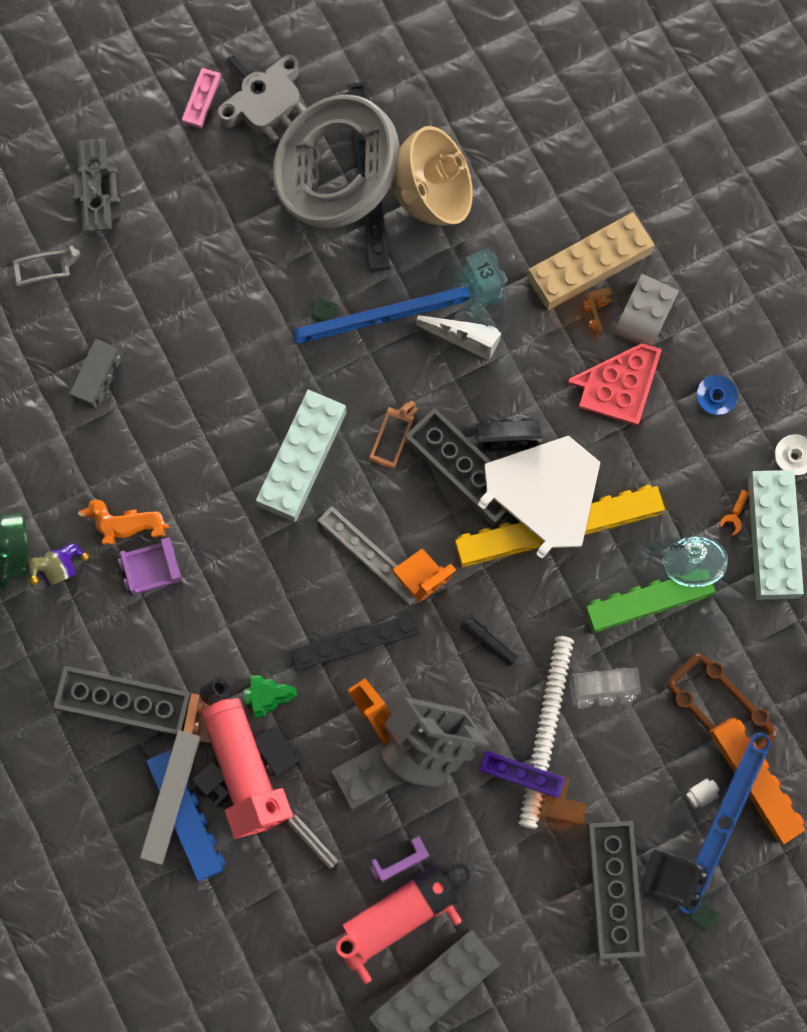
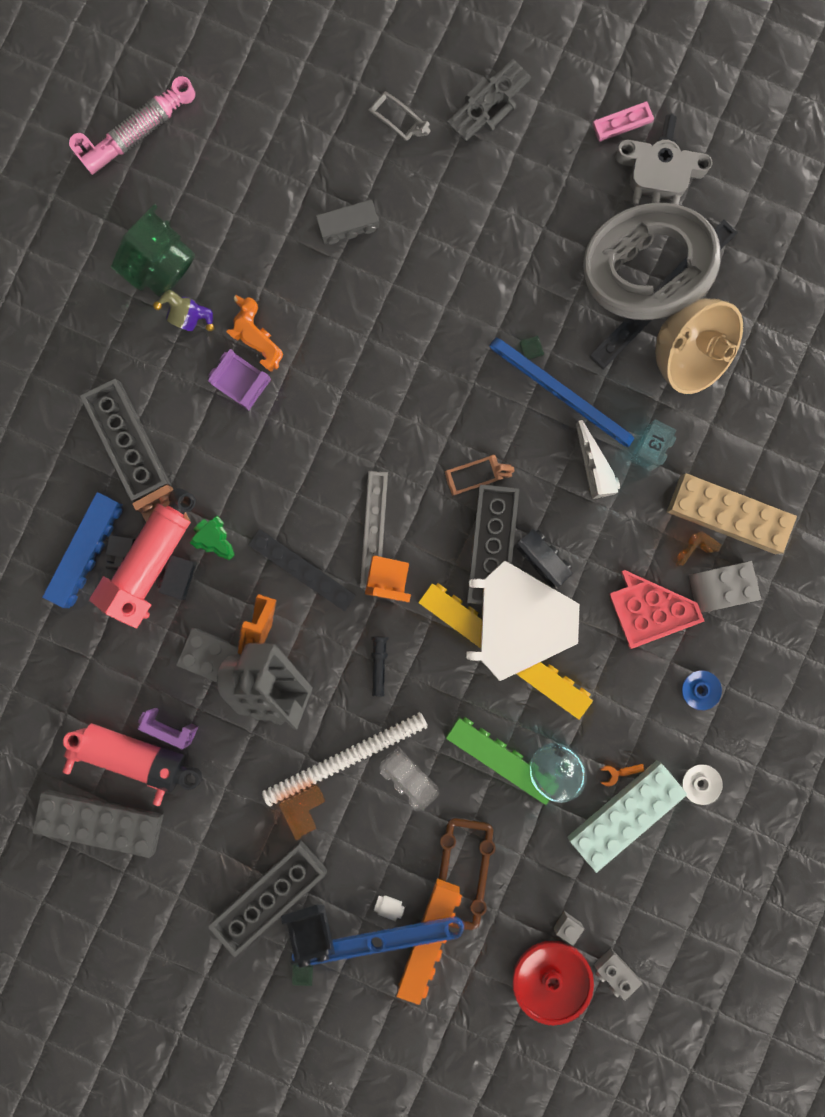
camera: 55 degrees right, 10 degrees up
(170, 797) = (83, 530): light grey tile -> none
(301, 455) = (407, 420): light aqua brick -> none
(312, 841) = (136, 654): light grey axle -> none
(522, 774) = (298, 768): dark purple tile -> none

